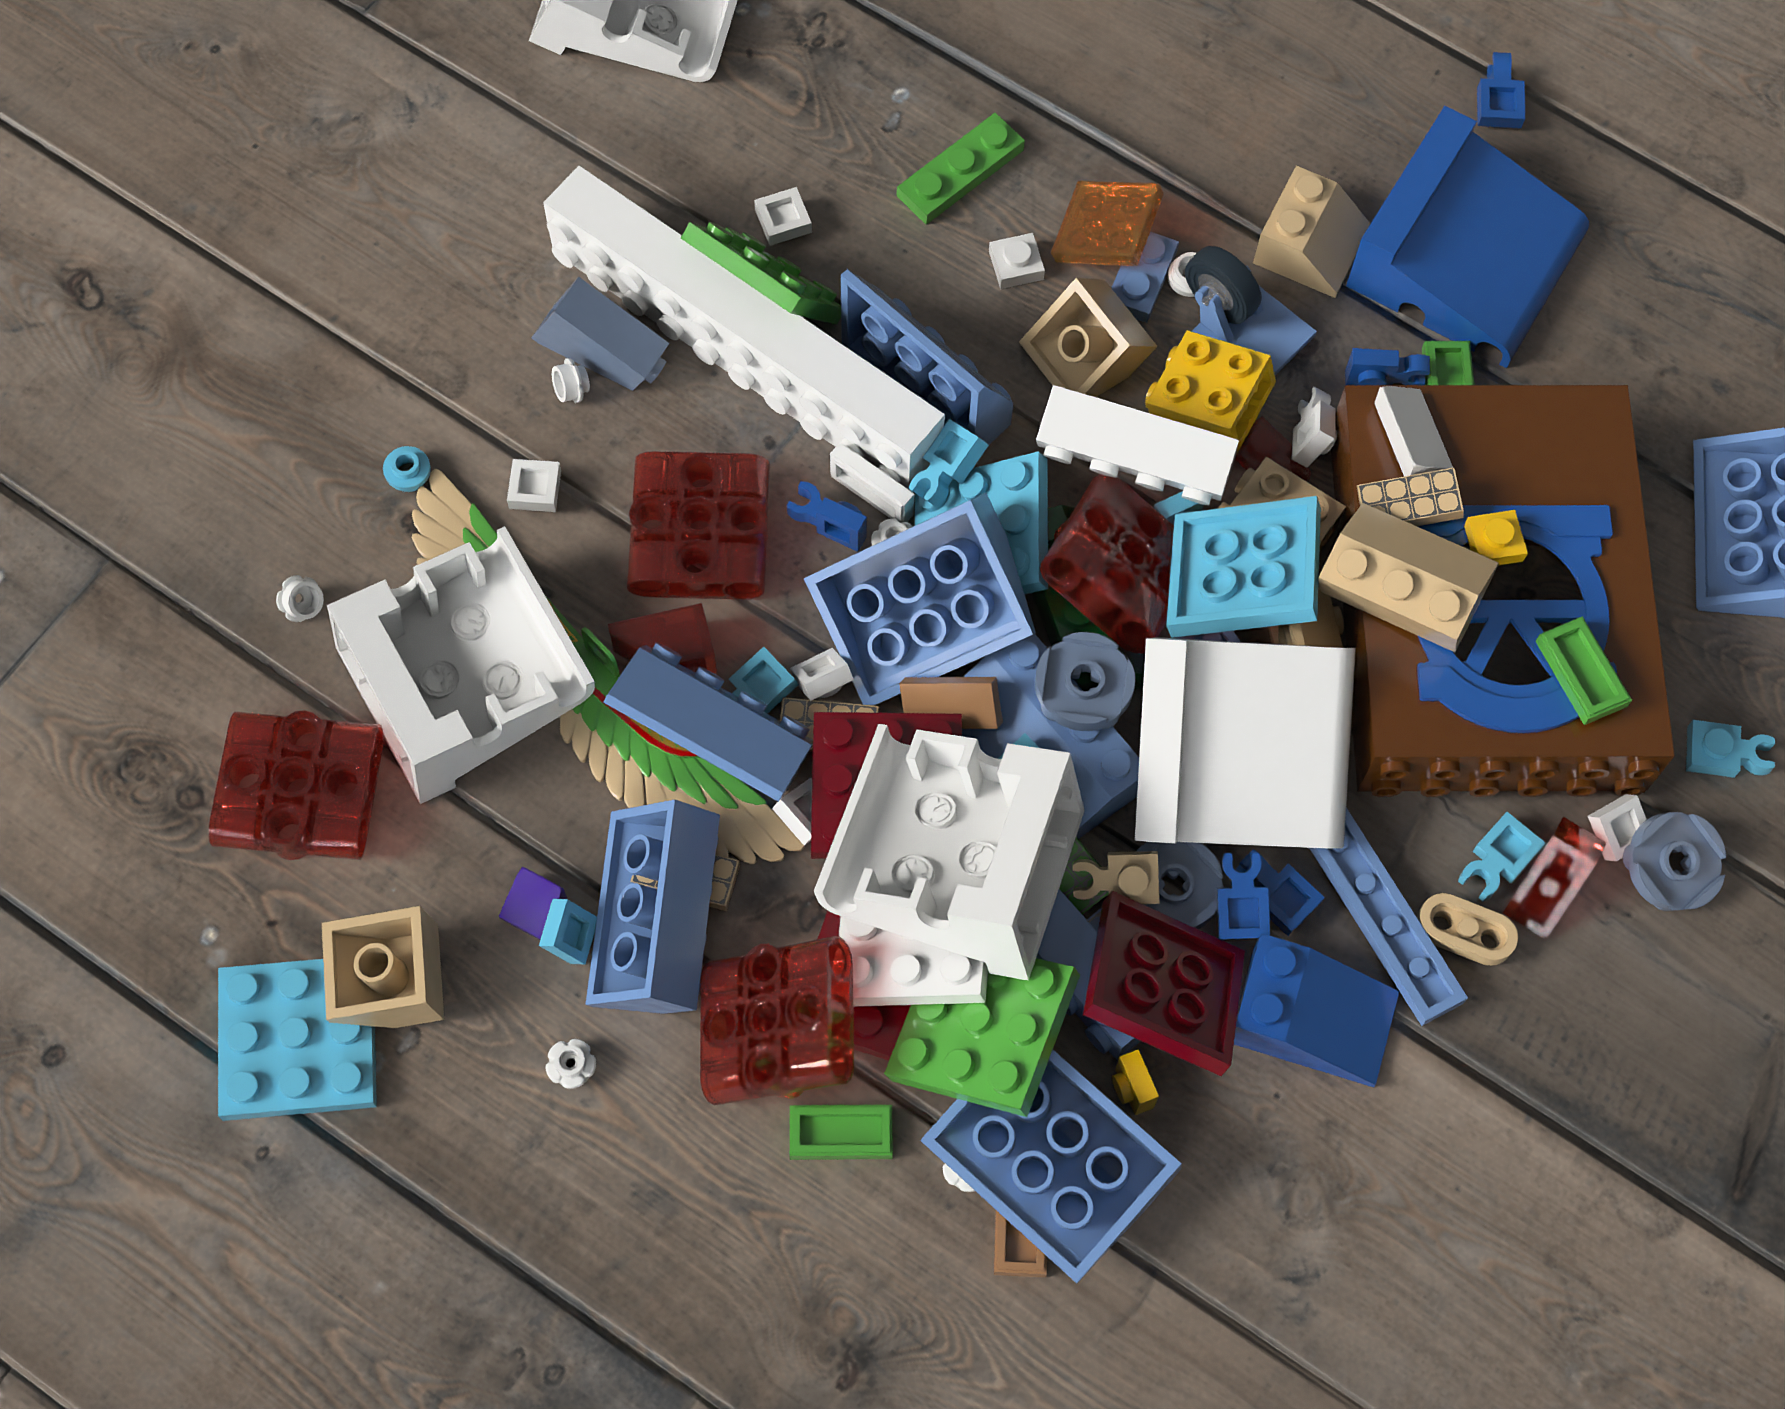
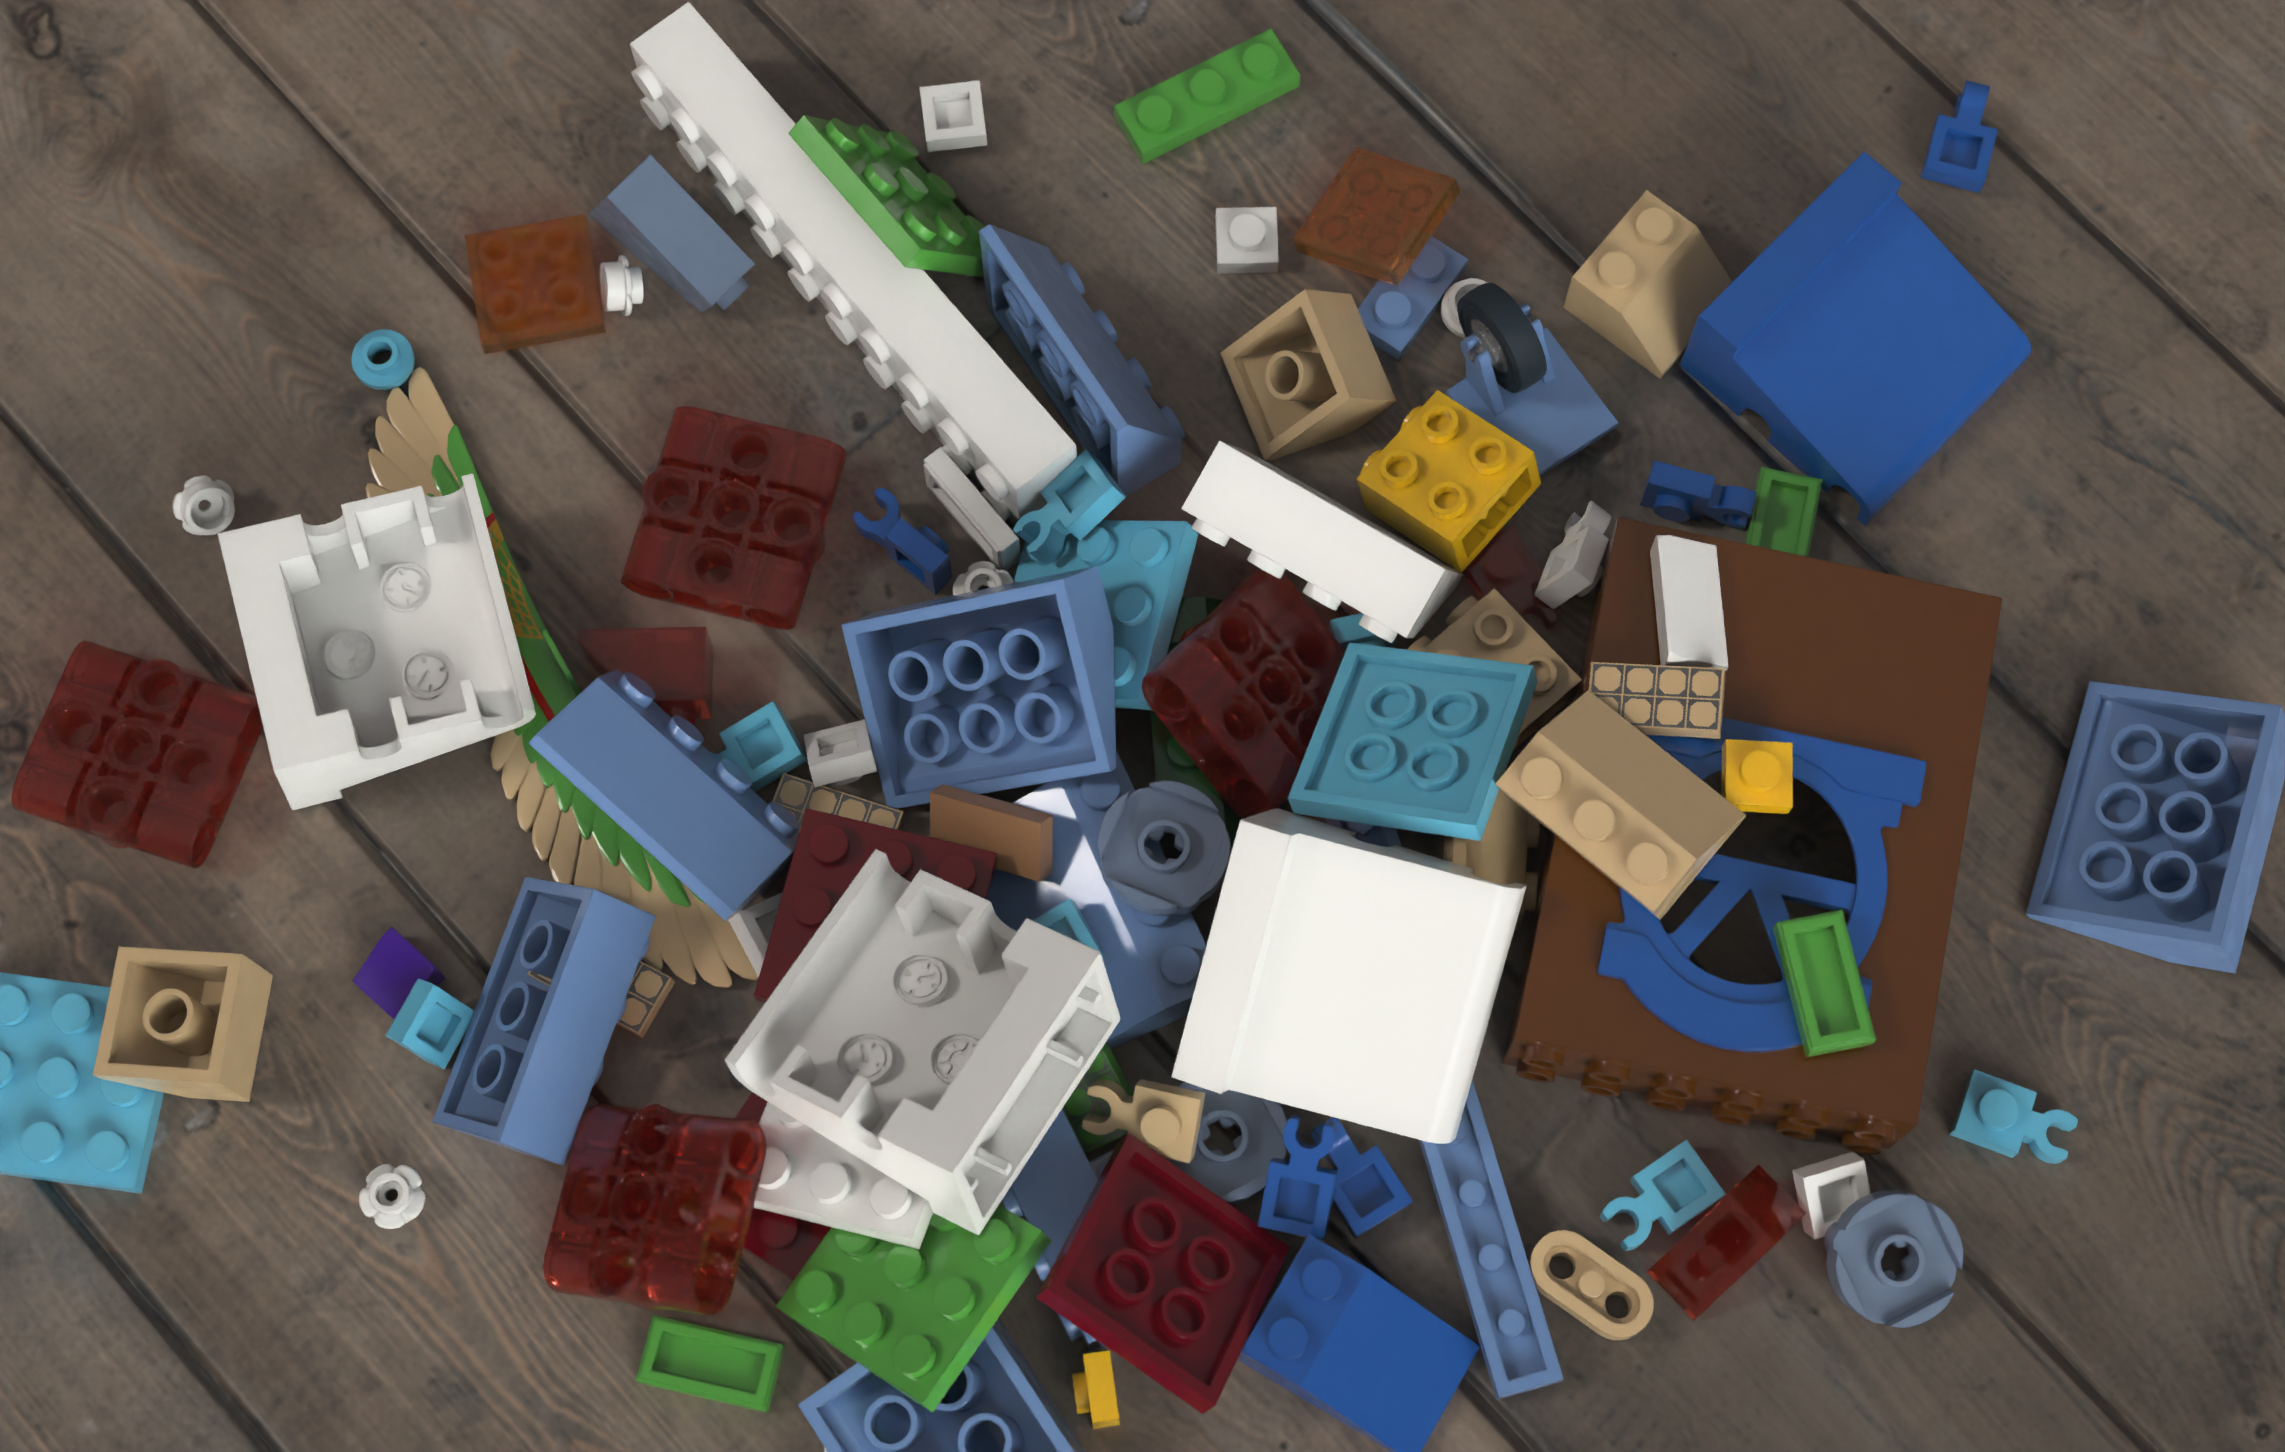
camera: 15 degrees right, 5 degrees up
(505, 393) = (535, 284): none -> clear orange tile
(534, 485) = (538, 417): white plate -> none

